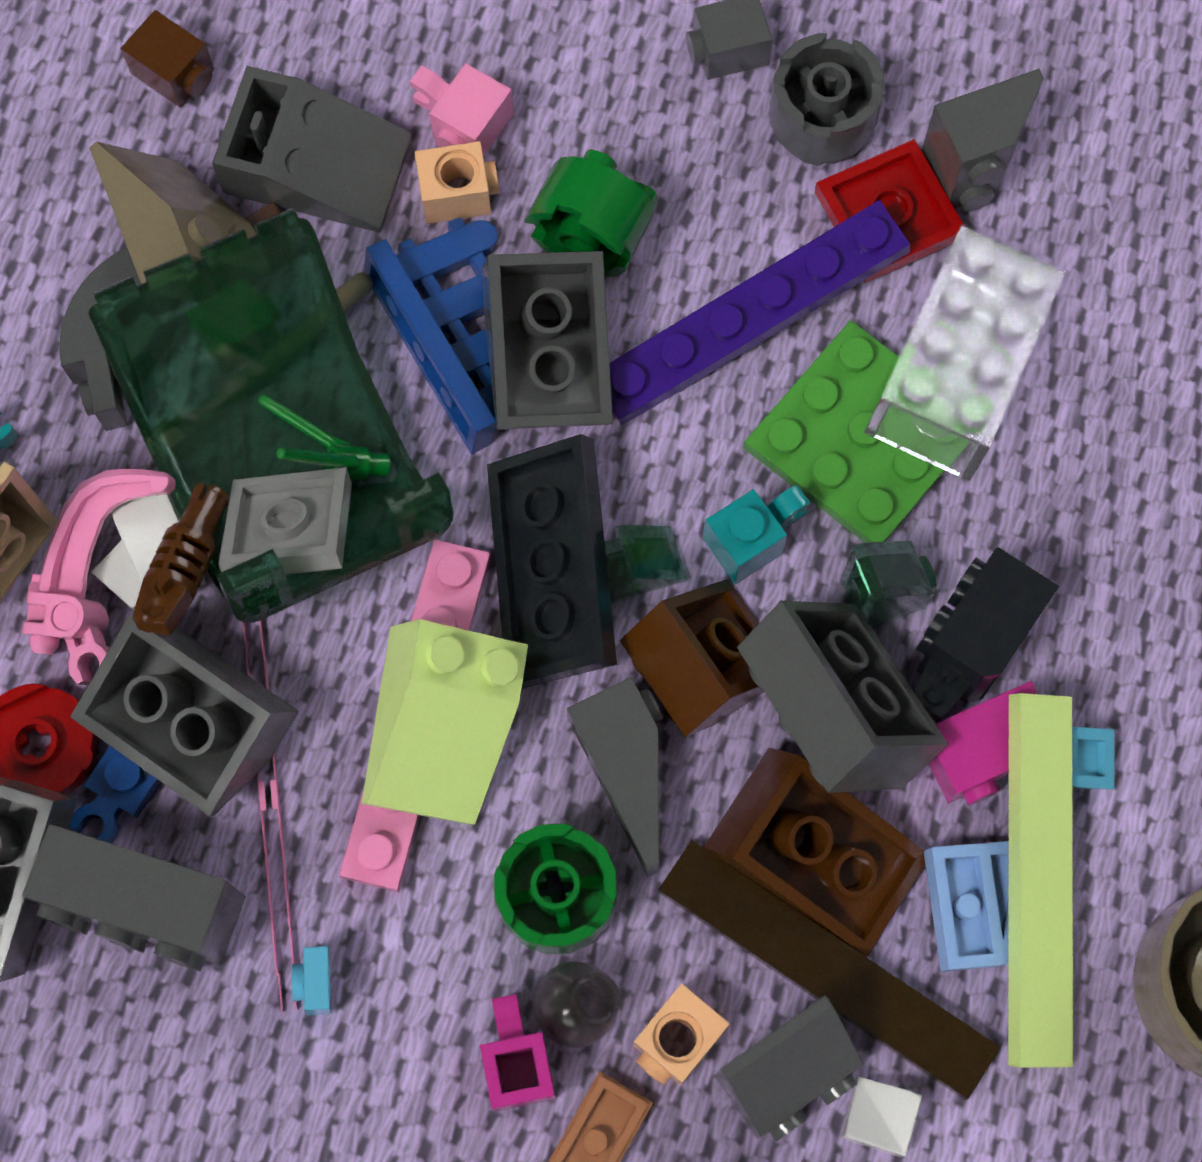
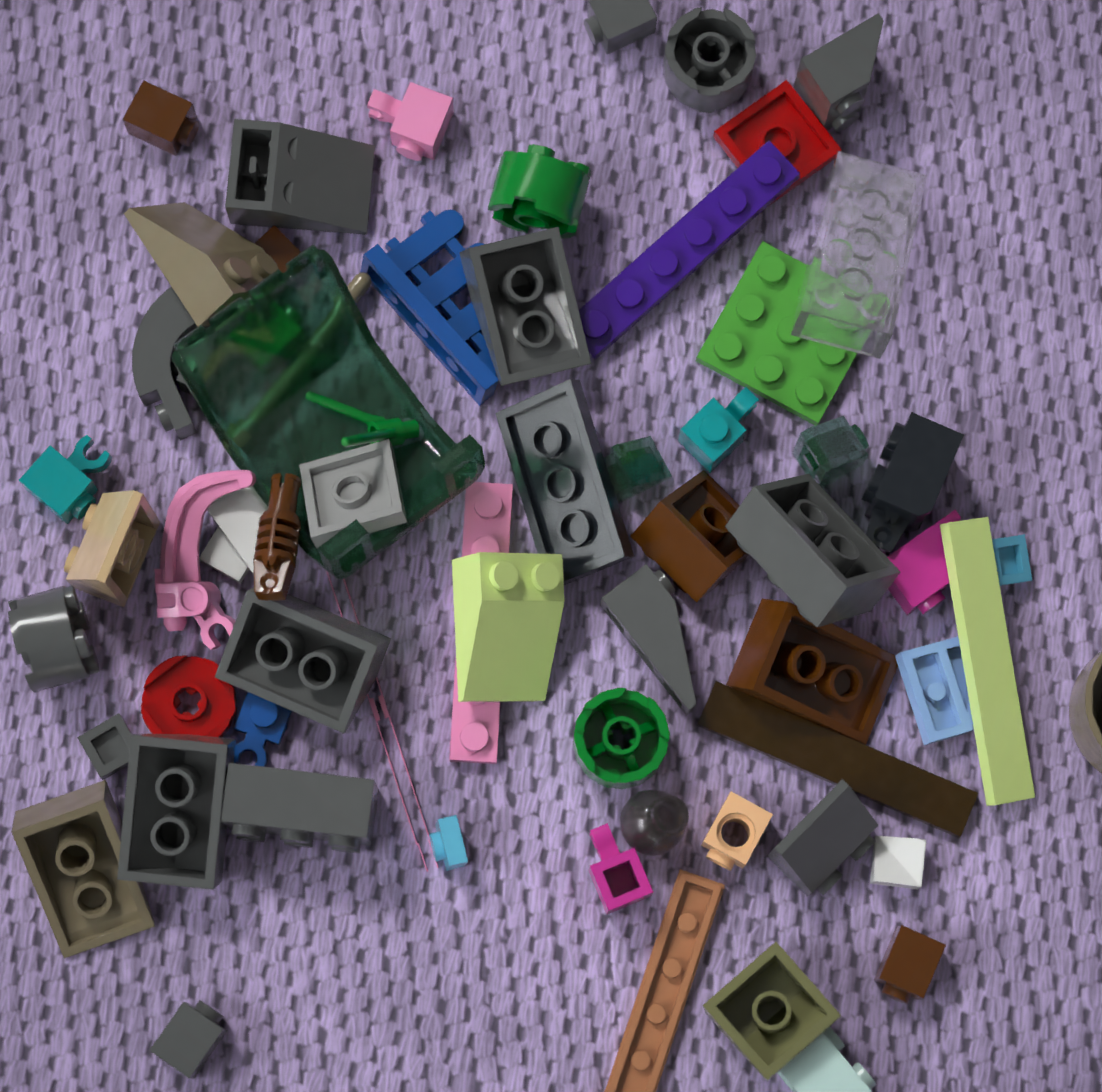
camera: 15 degrees left, 5 degrees up
(440, 166) = (413, 200): light nougat brick -> none

